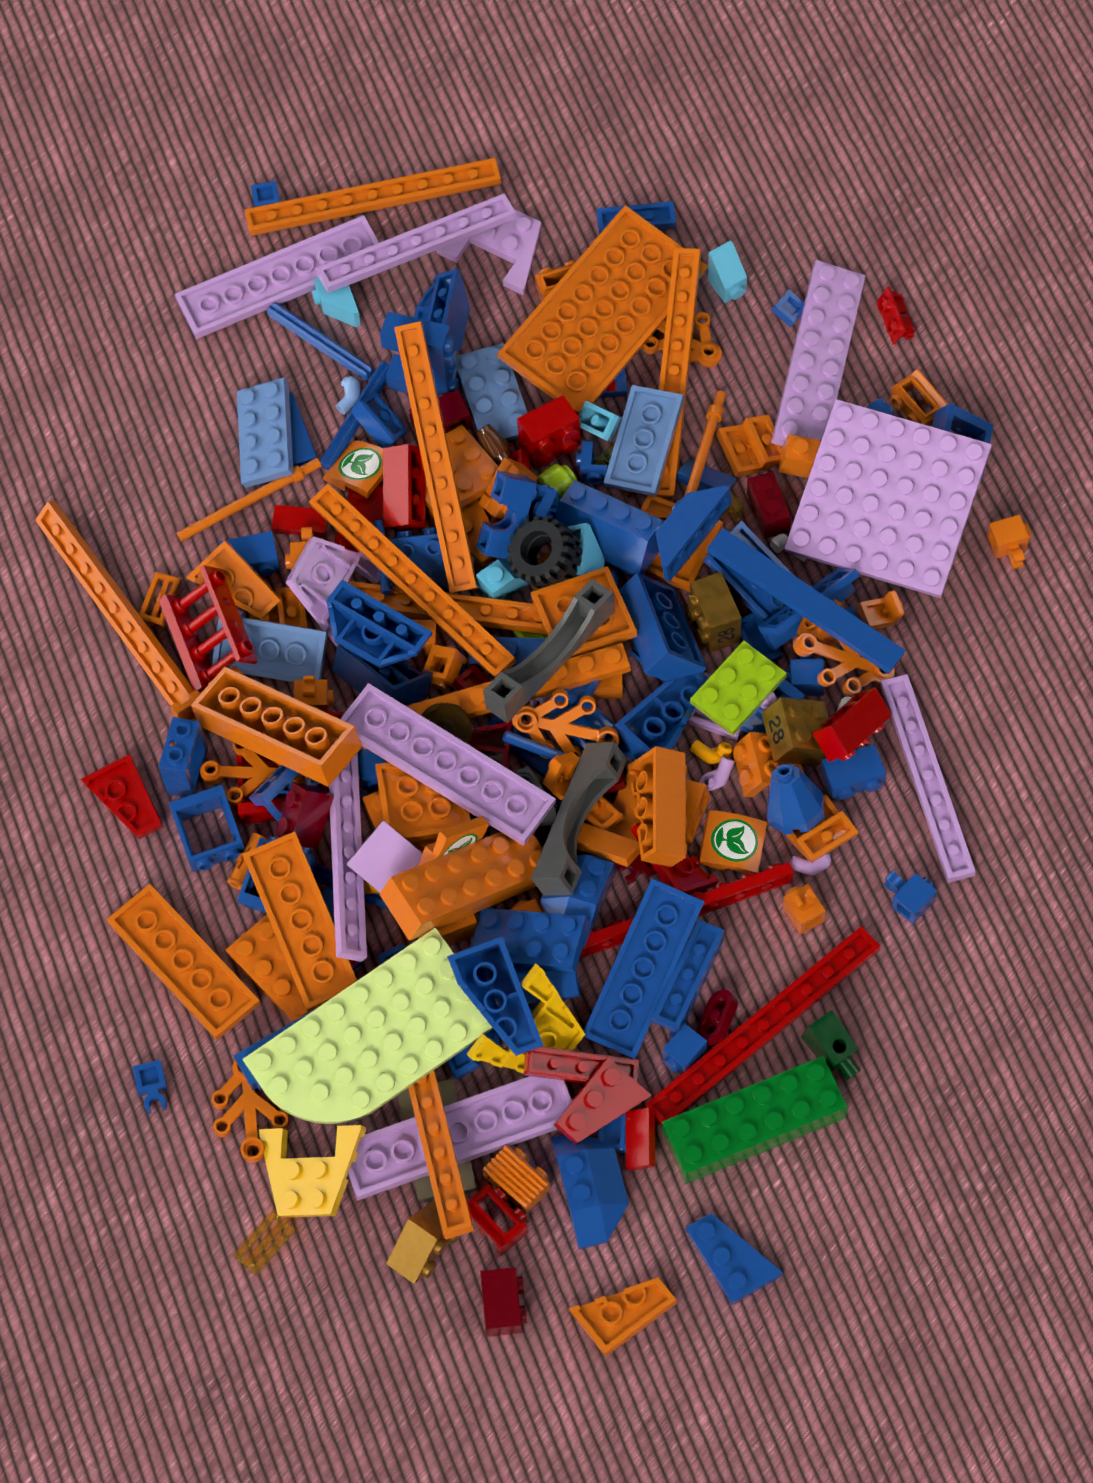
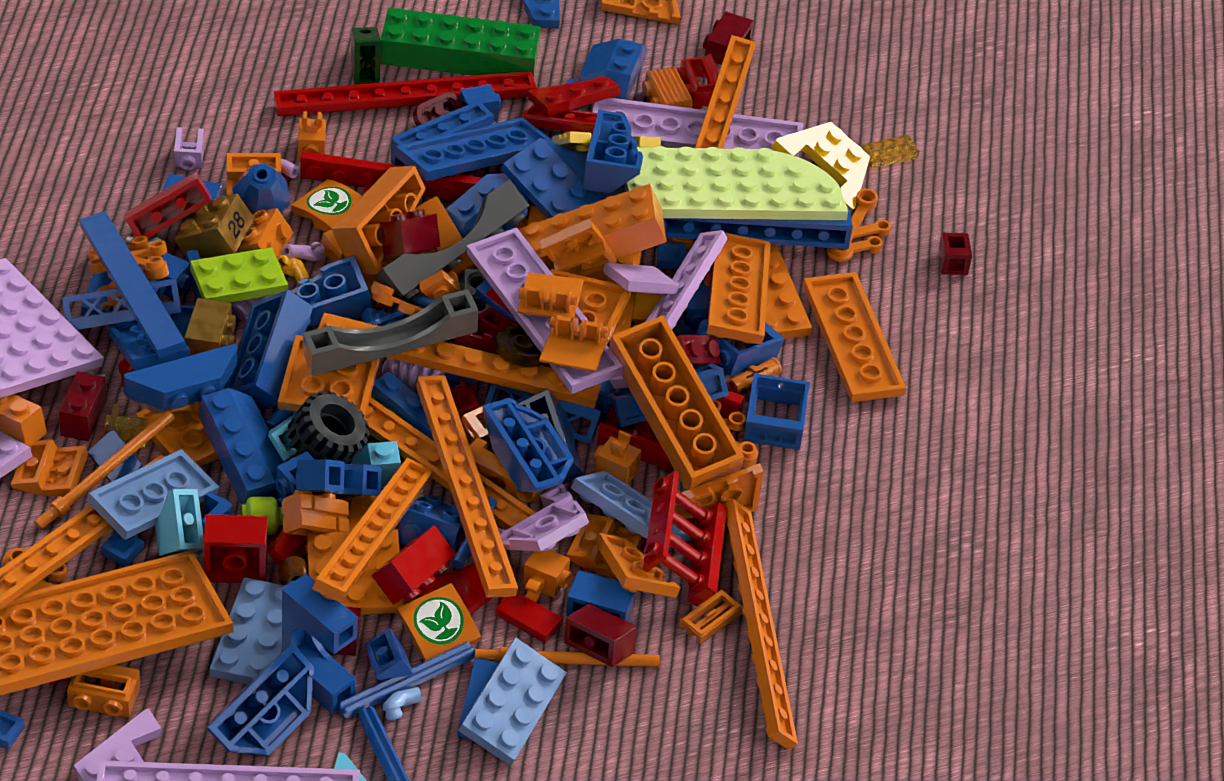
camera: 160 degrees left, 20 degrees down
(125, 795) = (835, 472): red wing -> none
(131, 1114) = (955, 253): none -> dark red brick
(150, 1082) = (927, 273): blue plate -> none
(182, 762) = (773, 445): blue window -> none
(228, 516) = (600, 635): none -> dark red brick
(387, 718) = (575, 344): none -> orange hinge
(419, 1245) = (765, 81): pearl gold brick -> none
(441, 764) = (550, 295): none -> orange hinge
(621, 804) = (409, 233): none -> dark red brick
(640, 1139) = (556, 71): red tile -> none
(881, 611) = (56, 288): orange bracket -> none
(900, 828) = (188, 154): none -> lavender window
(911, 898) = (219, 108): blue brick -> none
(927, 779) = (139, 161): lavender plate -> none

